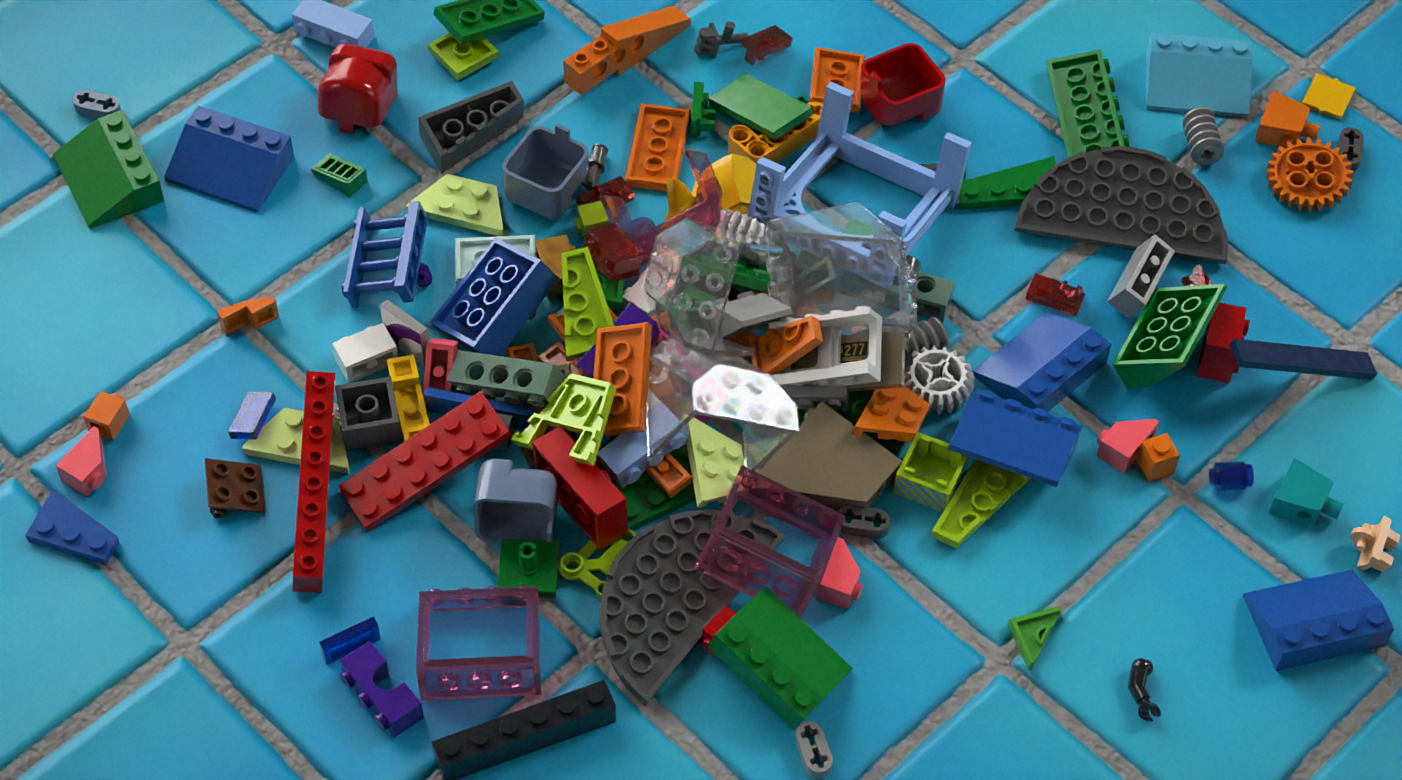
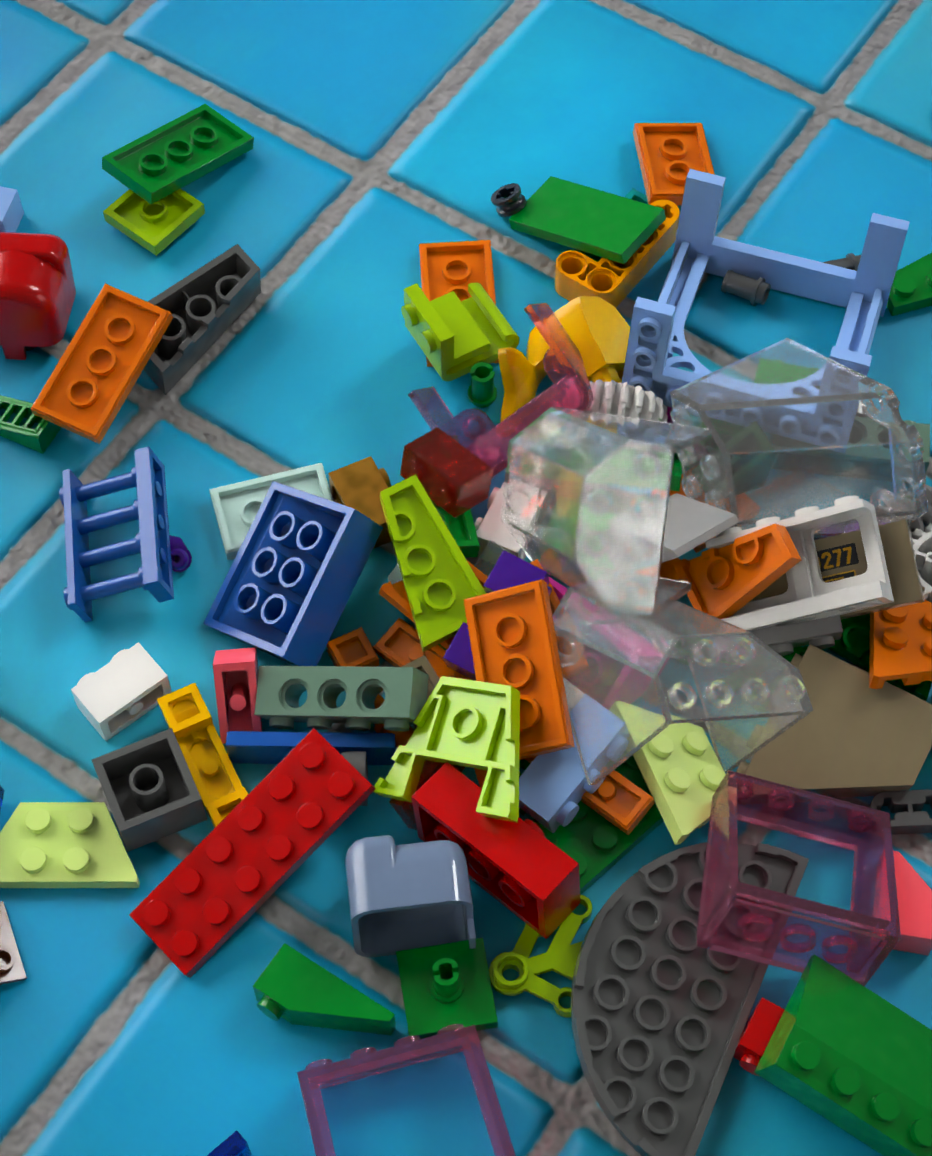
camera: 10 degrees left, 5 degrees up
(313, 482) = (94, 924): red brick -> none
(401, 143) = (102, 363): none -> orange tile
(405, 331) = (176, 650): tile -> none
(442, 555) = (314, 997): none -> green slope
(463, 204) = (207, 435): yellowish green wing -> none
(545, 171) = (317, 367): sand blue piece -> none
(590, 216) = (398, 425): lime brick -> none
(596, 166) = (380, 346): dark grey axle -> none
(615, 188) = (391, 397): clear red plate -> none
(622, 47) = (373, 169): orange brick -> none
(647, 165) = (456, 331): none -> lime piece
(656, 208) = (482, 388): none -> green pin
(702, 118) = (505, 246): green plate -> none
(709, 39) = (491, 138): dark grey arm -> none
(712, 84) = (508, 200): none -> black bush
(765, 43) = (566, 130): clear red plate -> none
(865, 174) = (745, 287): none -> dark grey pin
(902, 85) = (772, 156): red piece -> none

